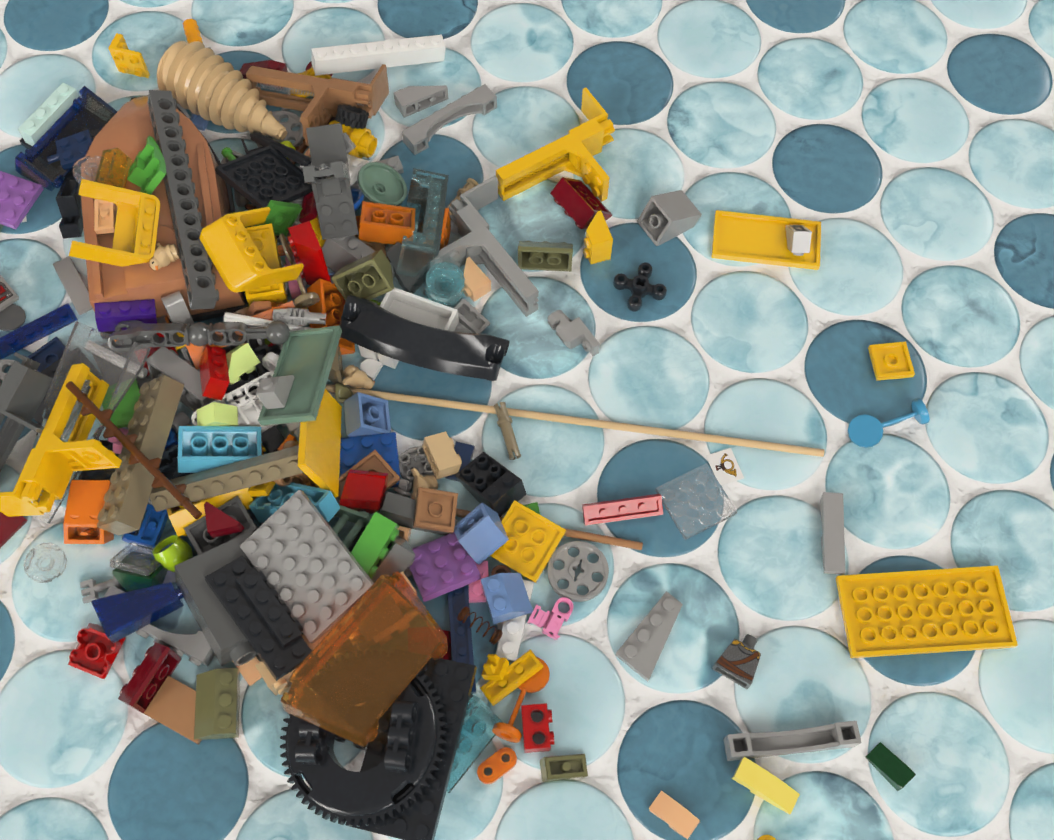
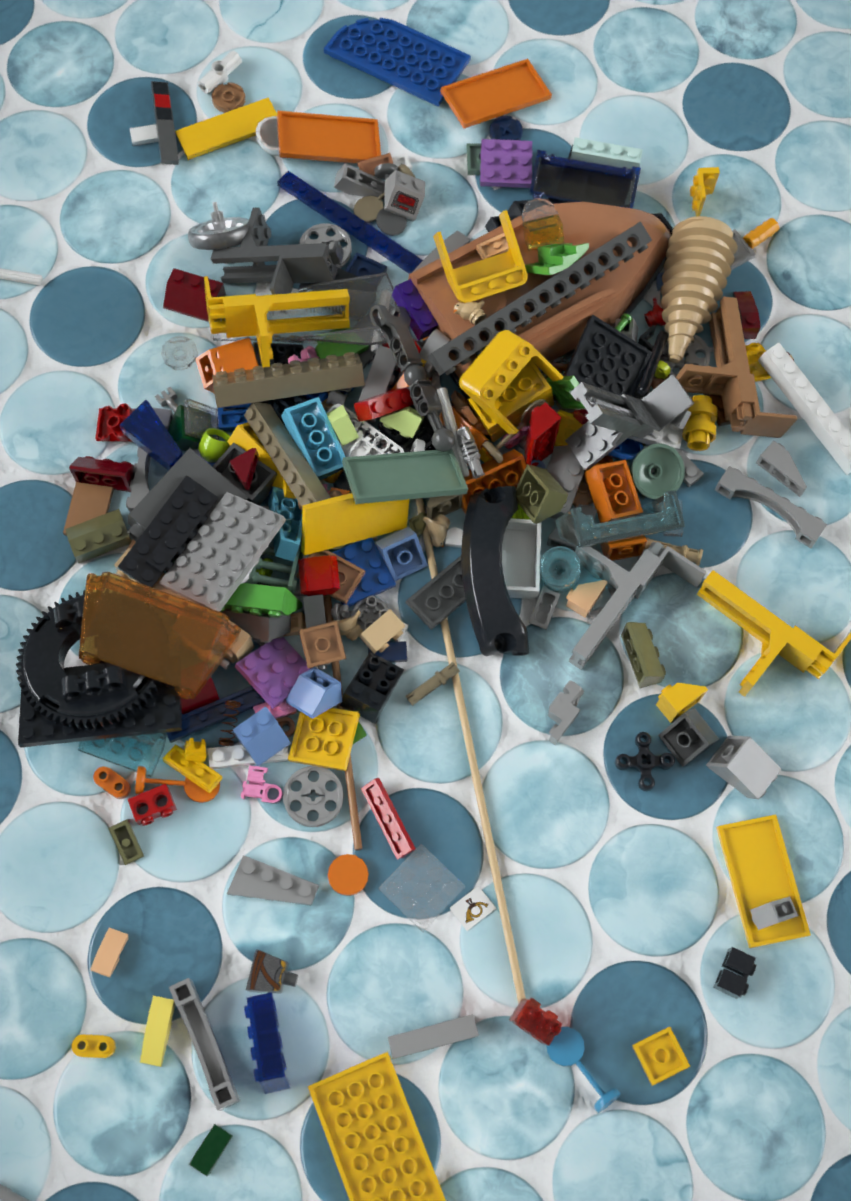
camera: 70 degrees right, 5 degrees up
(71, 149) = (577, 190): dark blue plate -> none
(136, 455) = (274, 376): reddish brown plant -> none
(231, 136) = (655, 316): none -> red animal
(275, 391) = (377, 459): light grey slope -> none
(352, 116) = (717, 411): black tyre -> none
(423, 394) = (439, 596): none -> dark grey tile
(578, 201) = (723, 670): dark red slope -> none
(630, 247) = (688, 737): none -> dark grey slope
(663, 562) = (348, 875): none -> orange tile
(804, 680) = (267, 1043): none -> clear blue wedge
(842, 442) = (535, 1021): none -> clear red brick
(845, 285) = (739, 963): none -> black piece

